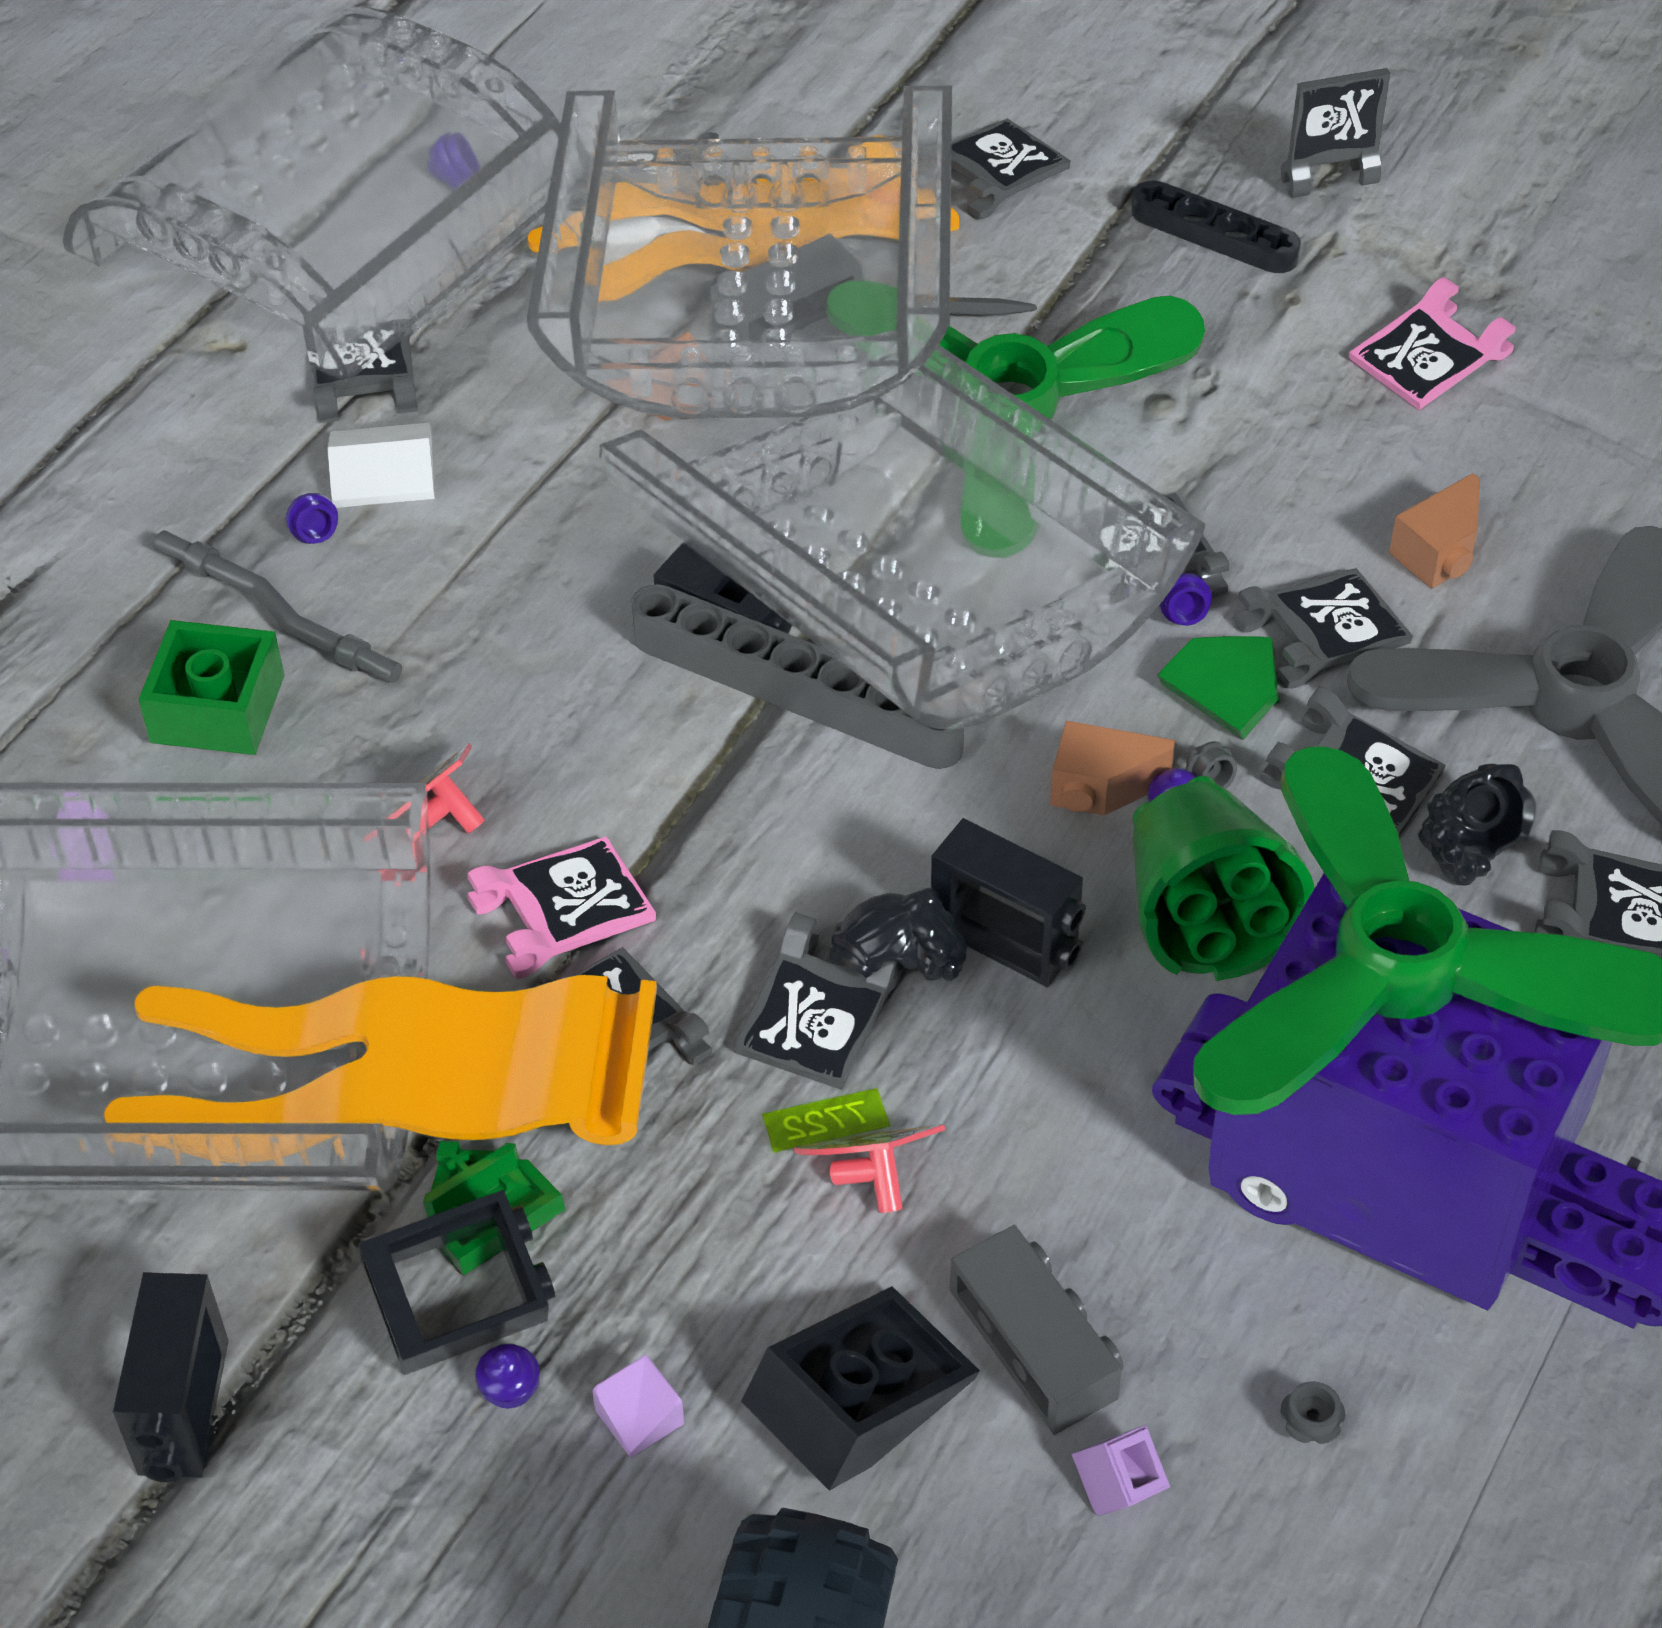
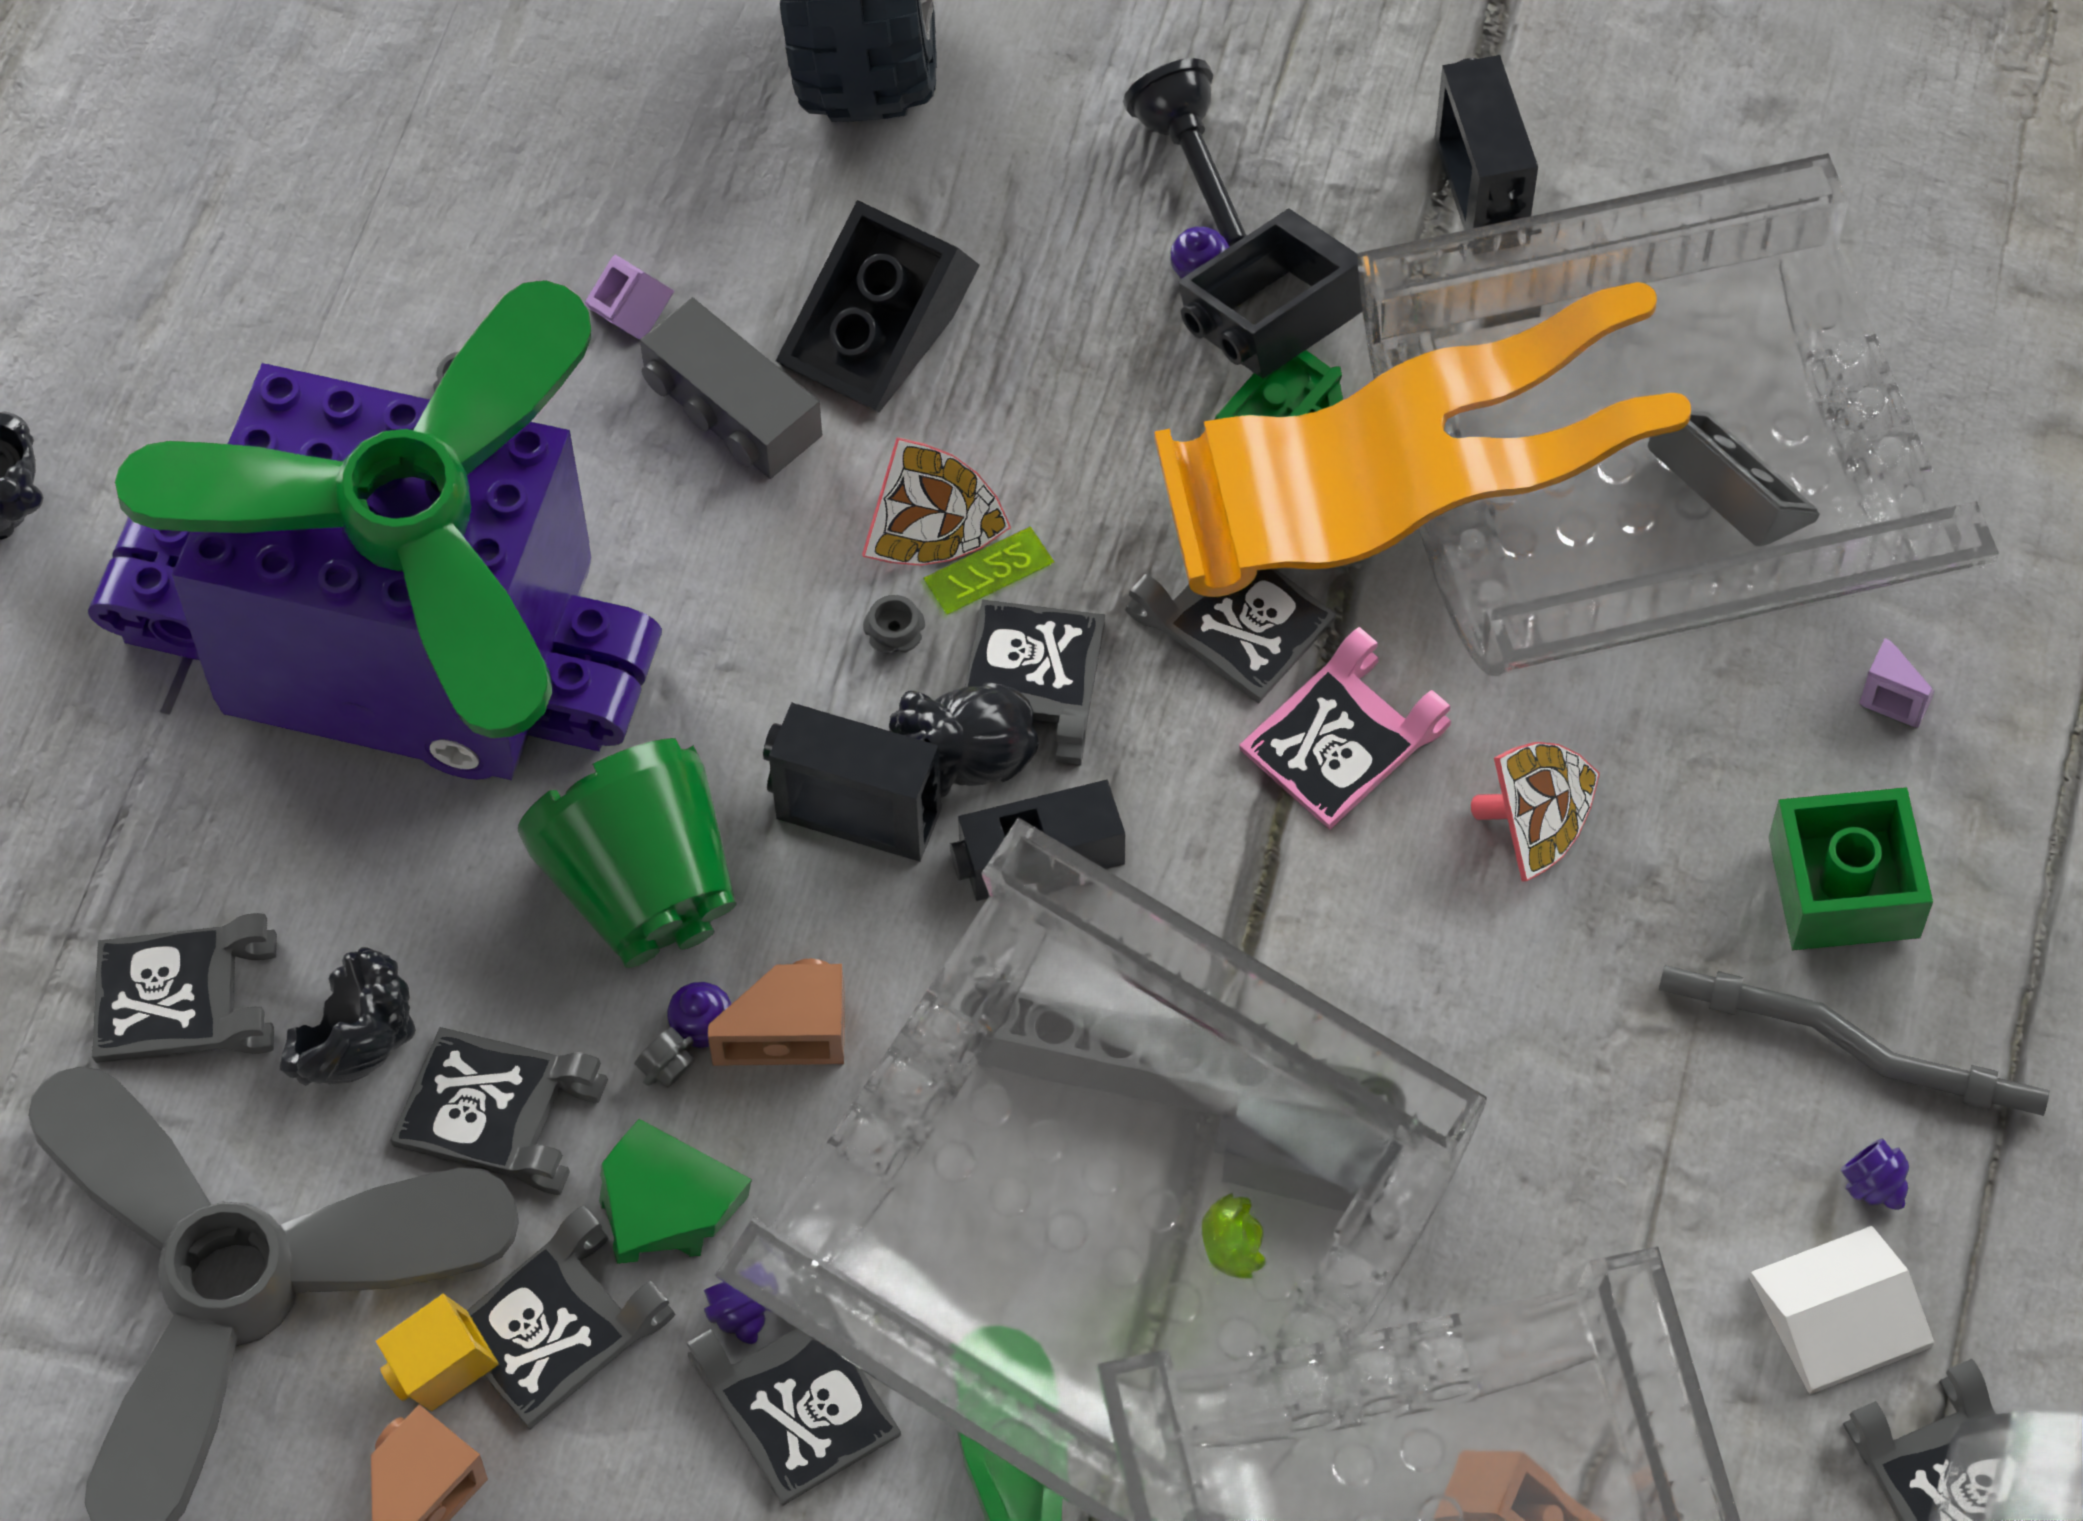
camera: 165 degrees right, 10 degrees up
(112, 971) = (1733, 480): none -> dark grey slope
(466, 1539) = (1174, 103): none -> black piece
(638, 1405) = (1072, 256): lavender slope -> none
(808, 518) = (1233, 1237): none -> clear neon green plate
(856, 855) = (1077, 817): none -> black brick
(930, 1058) = (894, 611): none -> dark grey plate
(1421, 598) = (434, 1354): none -> yellow brick

